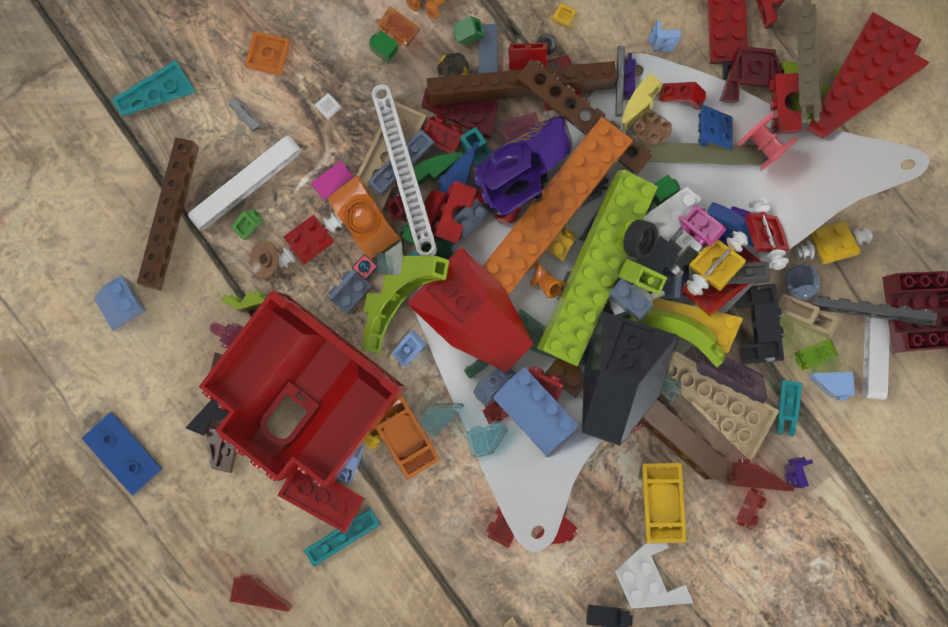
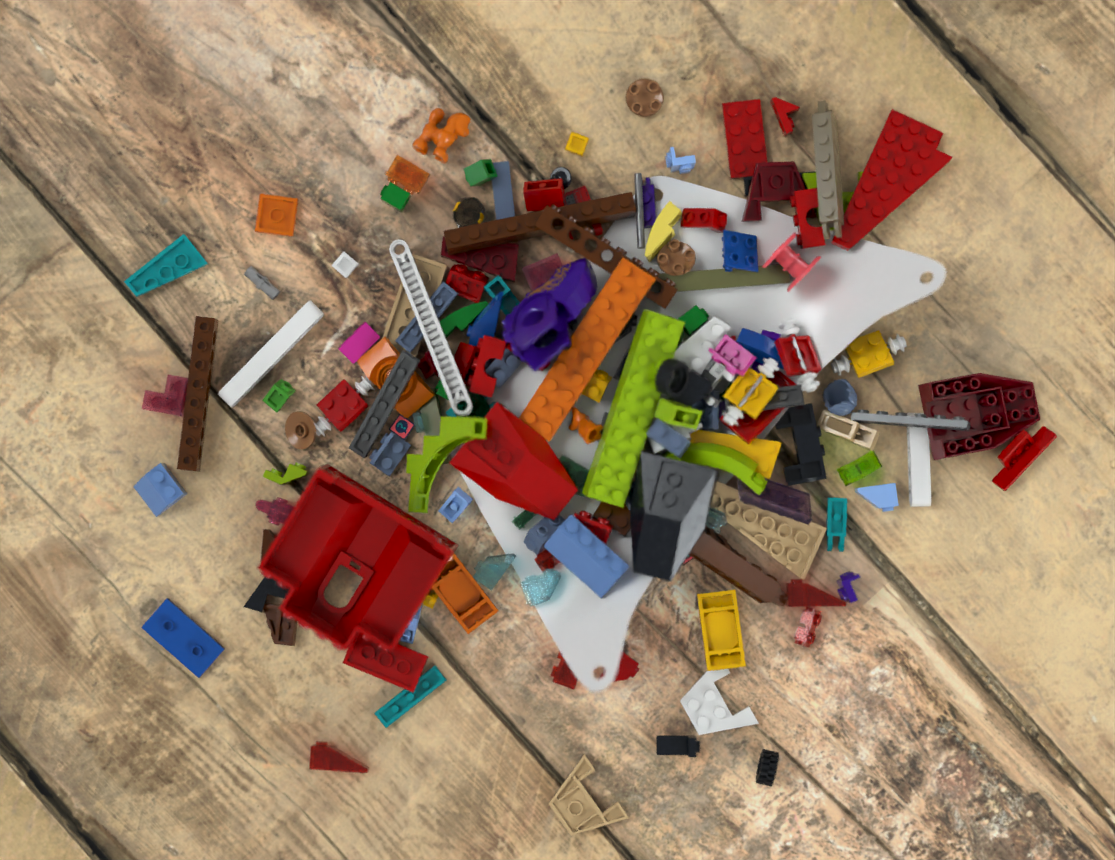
camera: 10 degrees left, 5 degrees up
(137, 218) = (170, 401): none -> clear pink brick
(349, 240) = (384, 404): none -> dark grey plate

